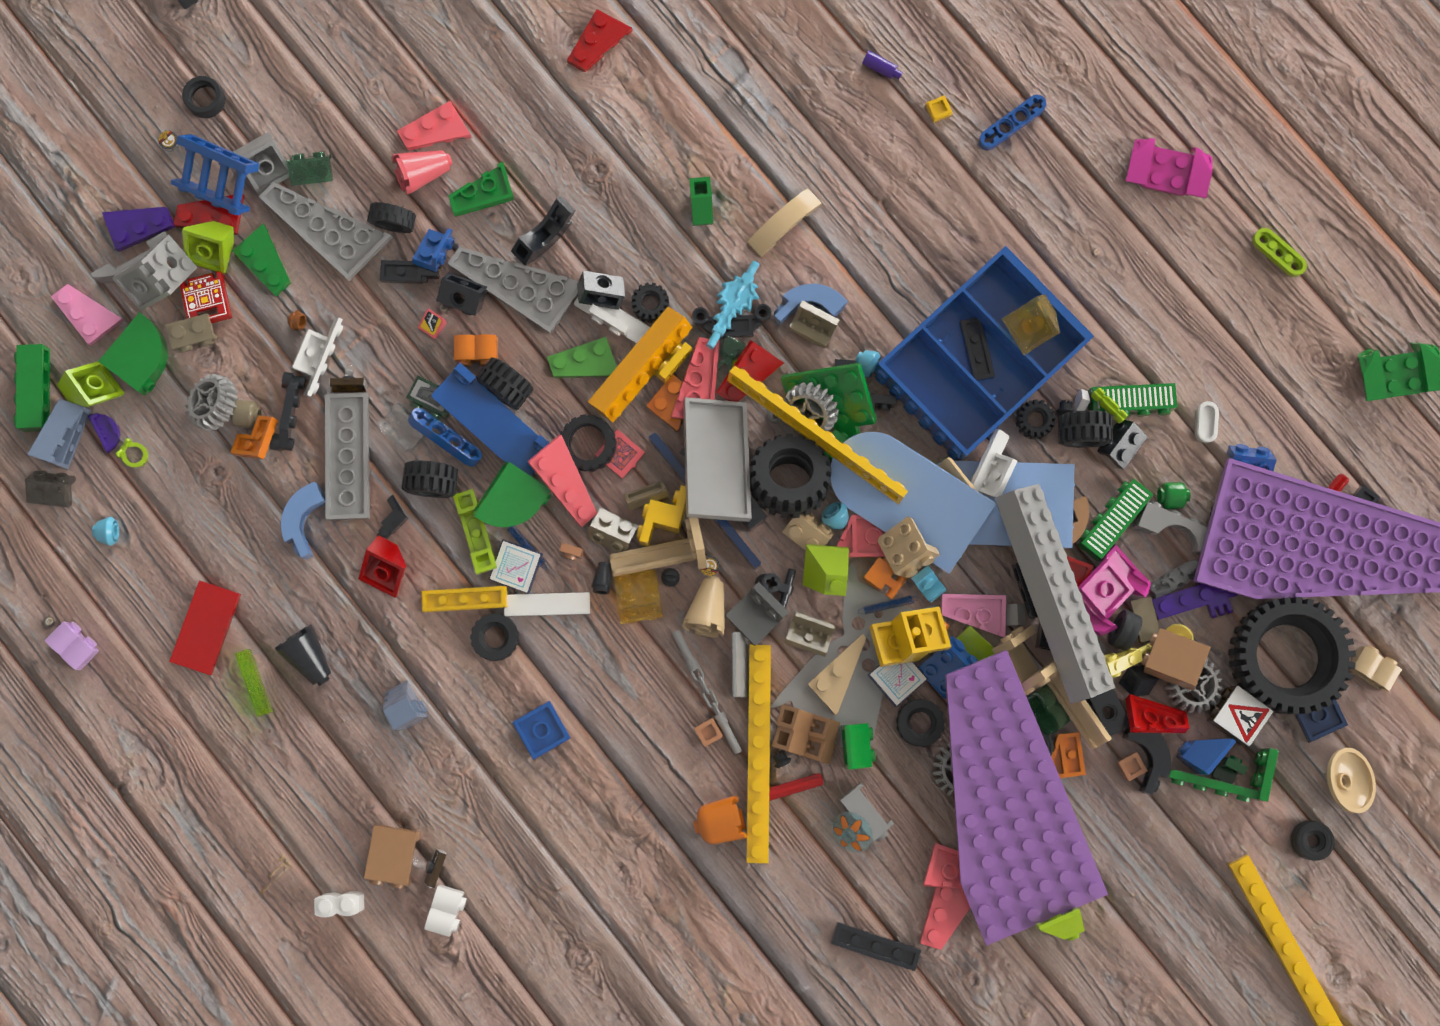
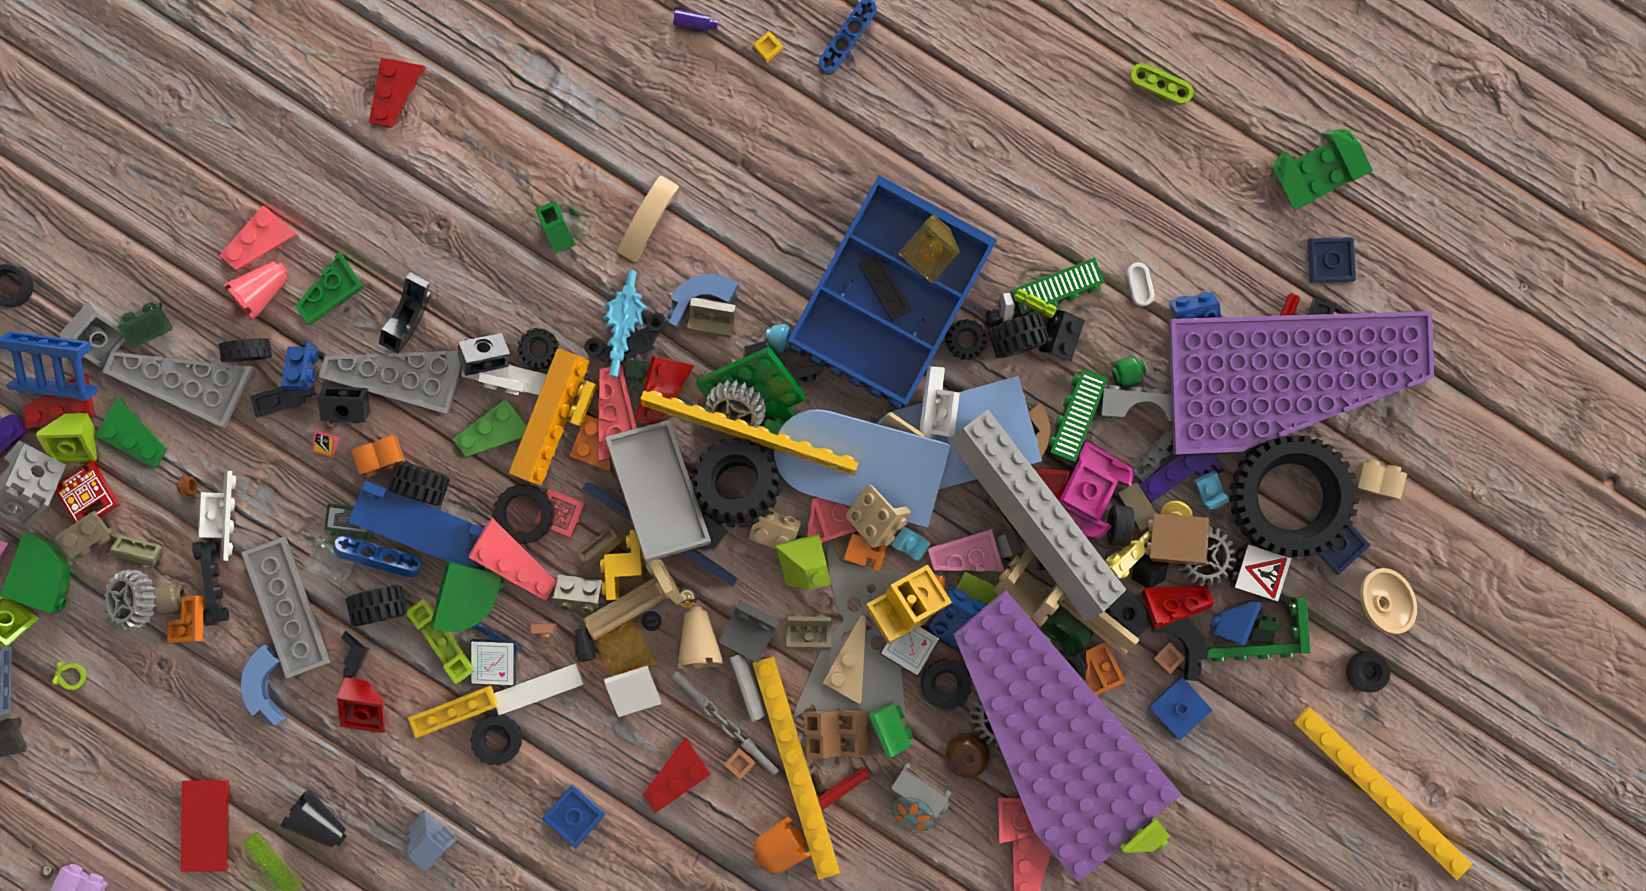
camera: 15 degrees left, 5 degrees up
(106, 430) = (34, 661): dark purple tile -> none
(106, 531) = (71, 763): medium azure cone -> none
(232, 362) = (136, 550): none -> olive plate
(348, 382) = (261, 532): dark brown piece -> none
(633, 633) = (632, 691): none -> white tile
(646, 726) = (676, 777): none -> red wing
(781, 760) = (820, 766): black piece -> none
(786, 588) = (759, 595): black piece -> none
(835, 515) = (796, 505): medium azure cone -> none
(899, 601) = (877, 578): blue piece -> none
(918, 794) = (967, 755): none -> reddish brown cylinder
(1128, 816) = (1180, 708): none -> blue plate
(1170, 169) = (1023, 33): dark pink piece -> none
(1216, 626) = (1211, 491): none -> medium azure bracket
(1387, 457) = (1332, 260): none -> dark blue tile

